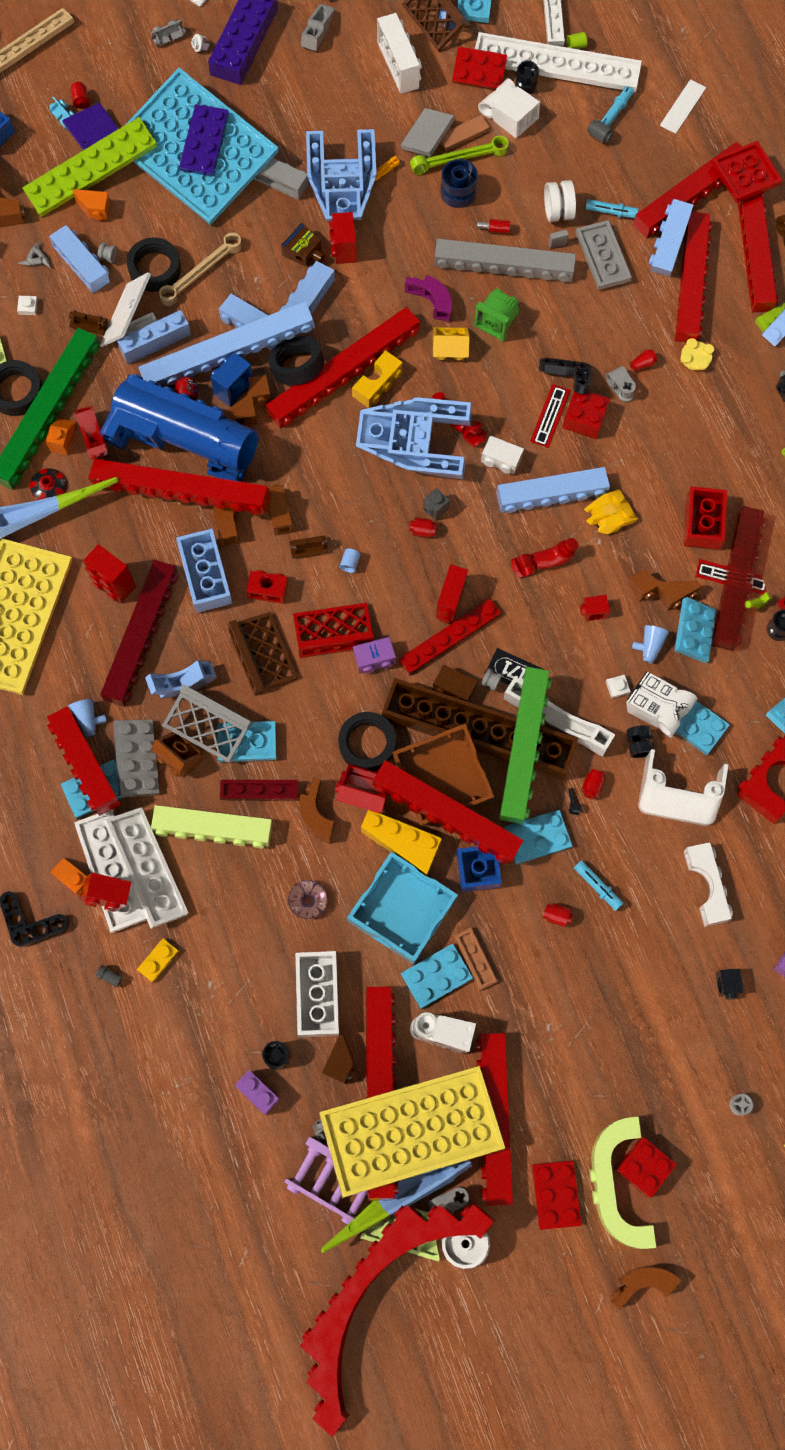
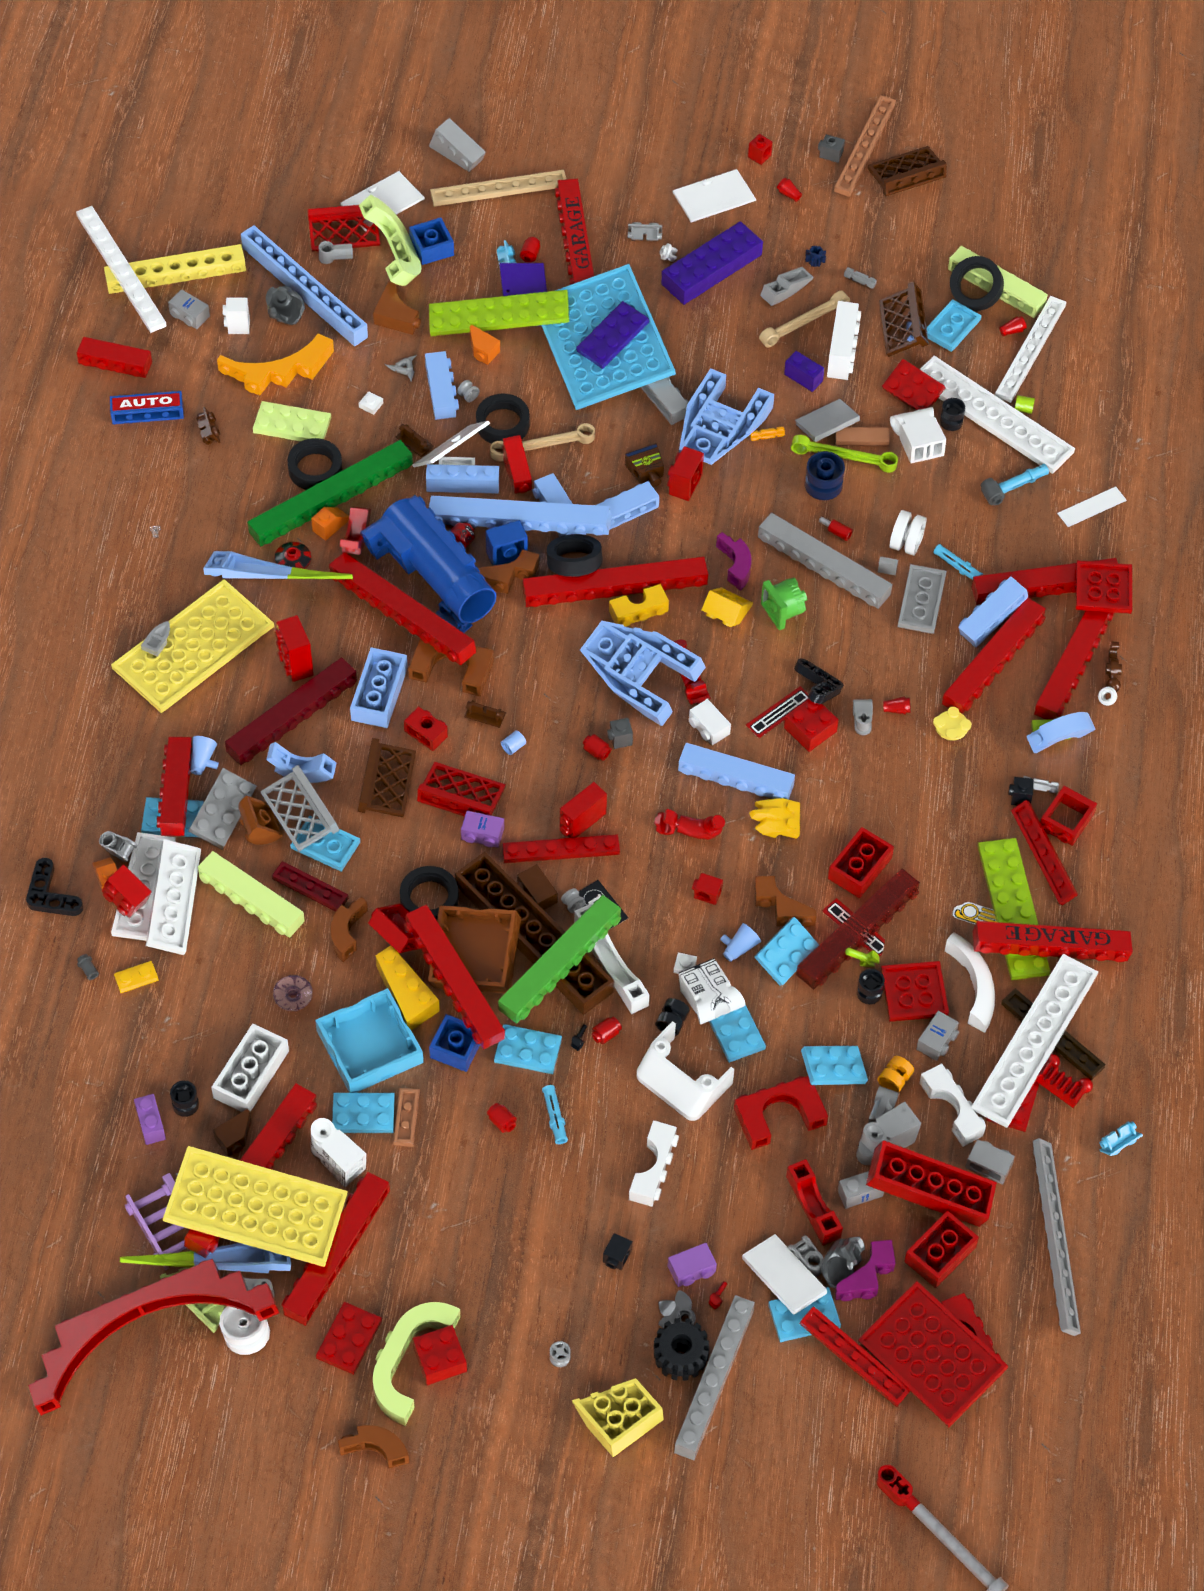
camera: 30 degrees right, 15 degrees down
(67, 846) = (117, 845): none -> light grey piece
(107, 60) = (574, 230): none -> red brick
(193, 301) = (516, 464): none -> red slope
(334, 76) = (770, 336): none -> tan piece
(381, 96) = (804, 371): none -> dark purple brick

